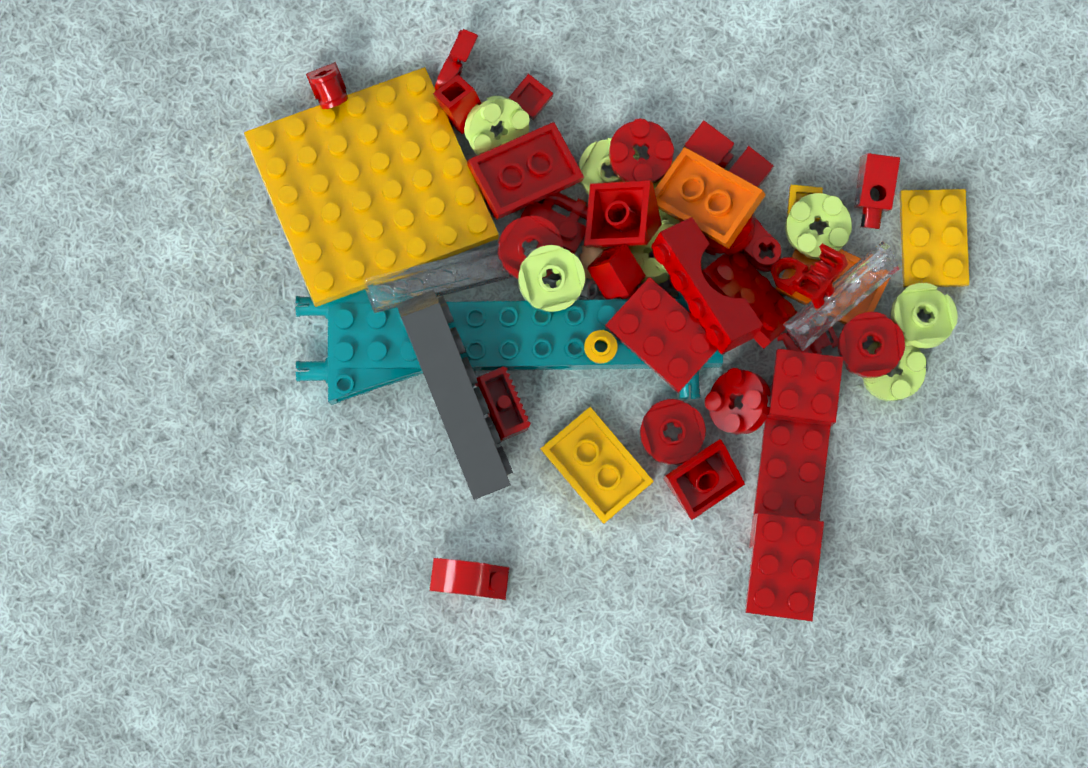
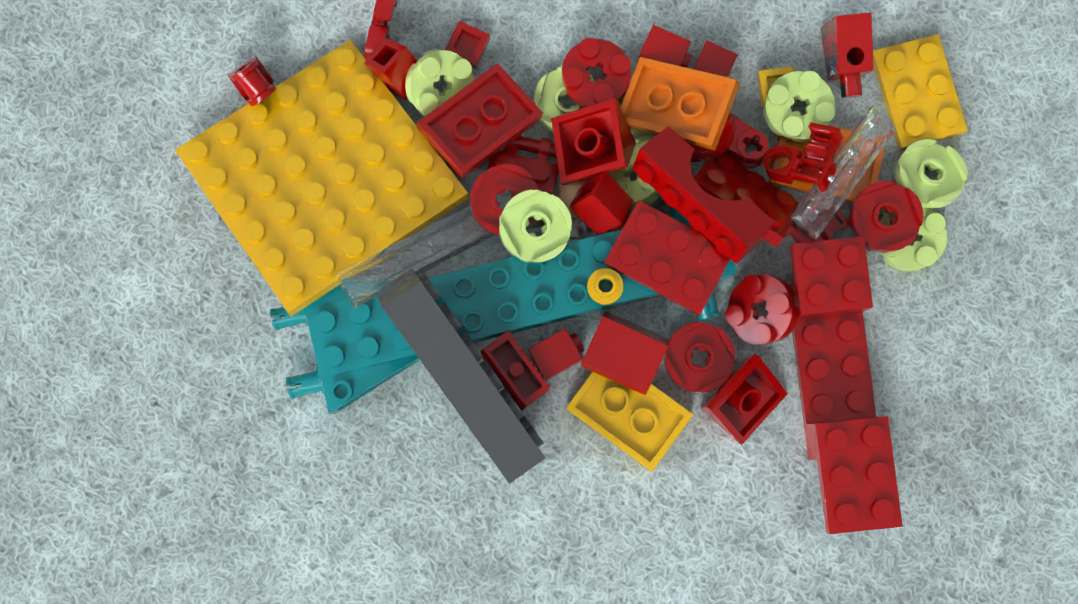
camera: 10 degrees left, 0 degrees up
(469, 578) = (523, 566): red brick -> none
(544, 397) = (557, 353): none -> red brick
(605, 410) = (625, 353): none -> red slope

